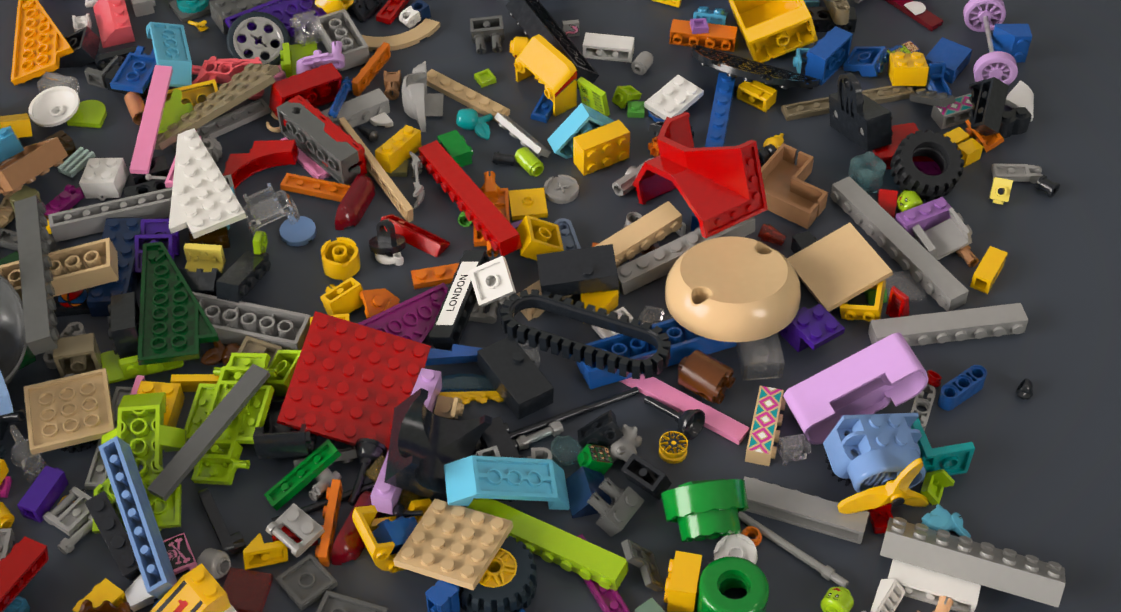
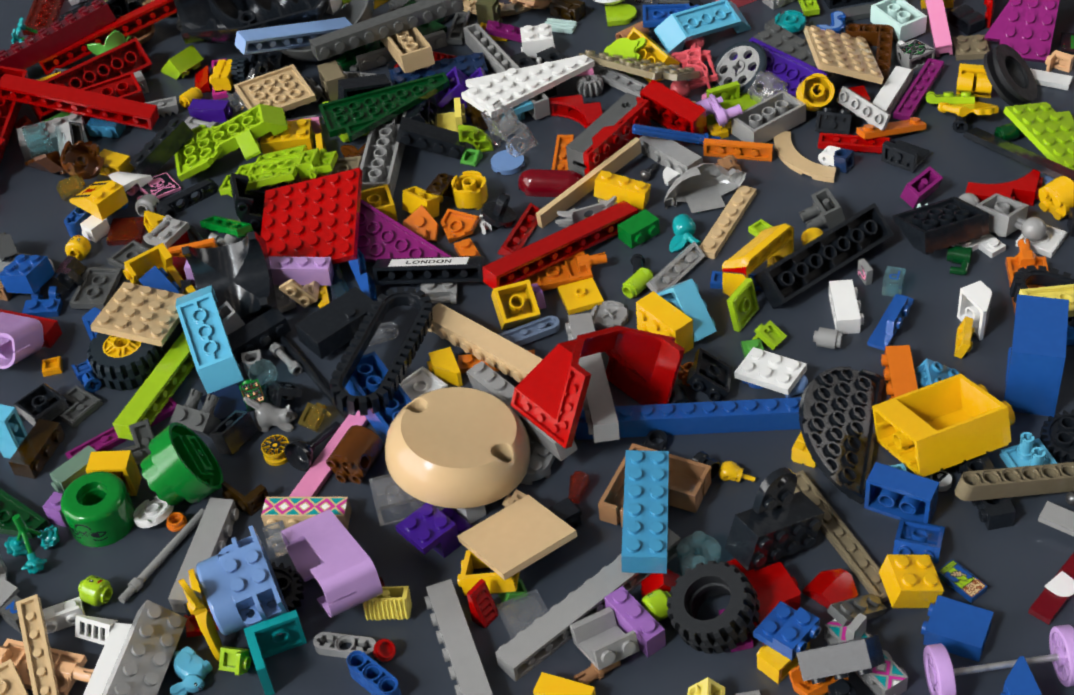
camera: 85 degrees right, 5 degrees down
(138, 517) = (165, 144): medium blue brick -> none
(151, 120) = (602, 37): bright pink tile -> none
(208, 432) = (248, 157): dark grey tile -> none
(276, 258) = (471, 157): none -> bright green slope
(325, 275) = (441, 185): none -> dark brown bracket
(387, 275) = (458, 224): none -> orange plate
(492, 282) = (437, 276): white tile -> none
(578, 270) = (460, 328): black brick -> none
(589, 15) = (893, 281): none -> clear light blue brick
(622, 199) = (598, 403): none -> light grey brick
(633, 24) = (890, 322): none -> blue bracket
(635, 413) = (313, 416): none -> clear yellow bracket
(699, 26) = (902, 367): medium lavender tile -> none
(738, 466) = (251, 502): none -> dark brown bracket
(833, 180) = (645, 512): none -> dark azure brick
(902, 112) = (831, 587): none -> red slope
(936, 79) = (899, 620): blue animal -> none
(956, 128) = (788, 630): none -> blue plate
(960, 96) = (856, 627): none -> light grey tile

